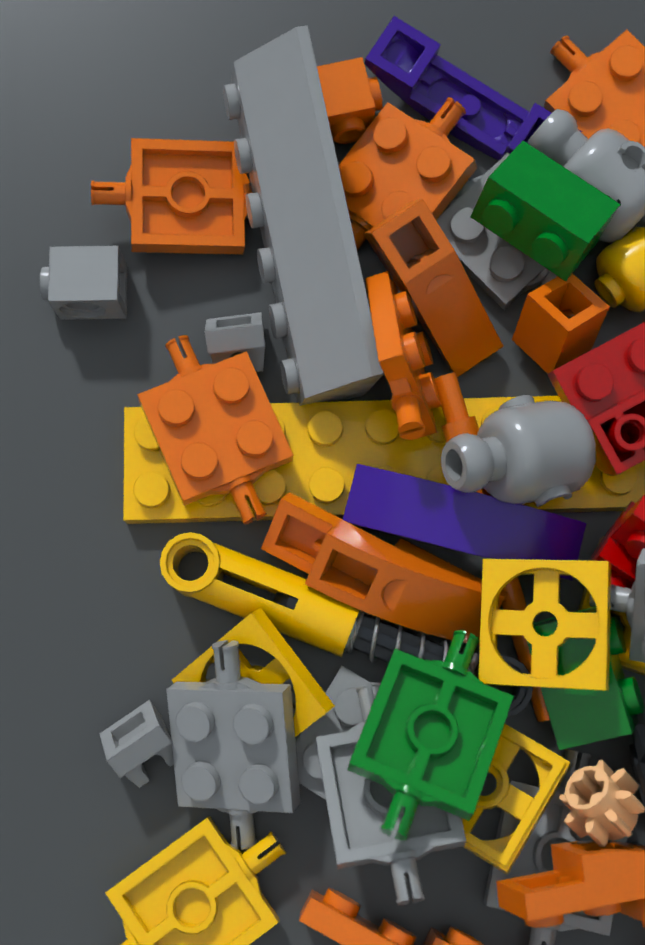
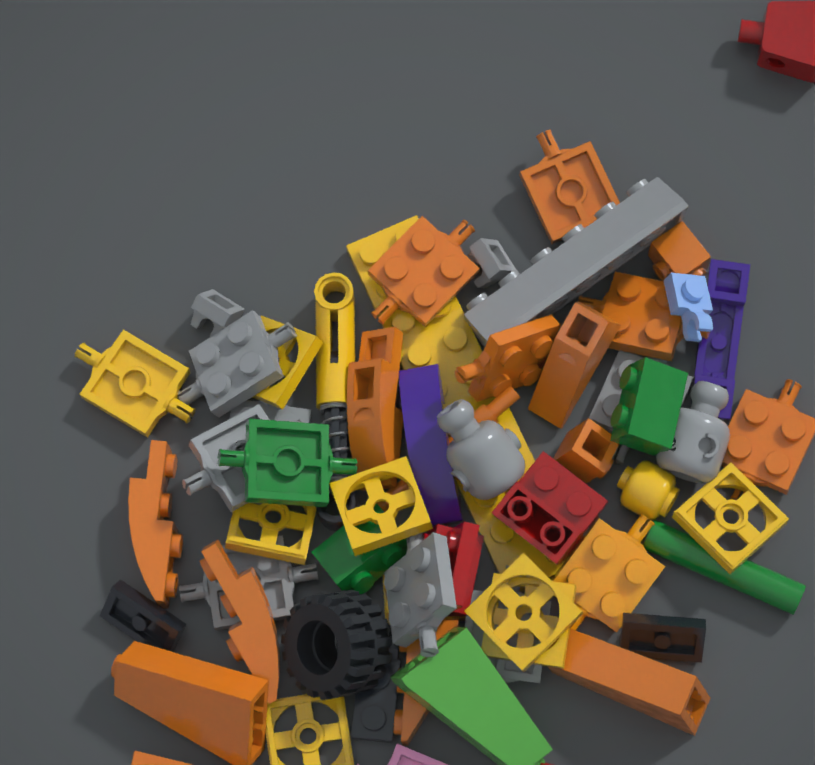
camera: 70 degrees right, 5 degrees down
(85, 282) = (486, 157): light grey brick -> none
(412, 105) = (691, 300): none -> light blue plate
(602, 803) = (287, 582): light nougat gear -> none

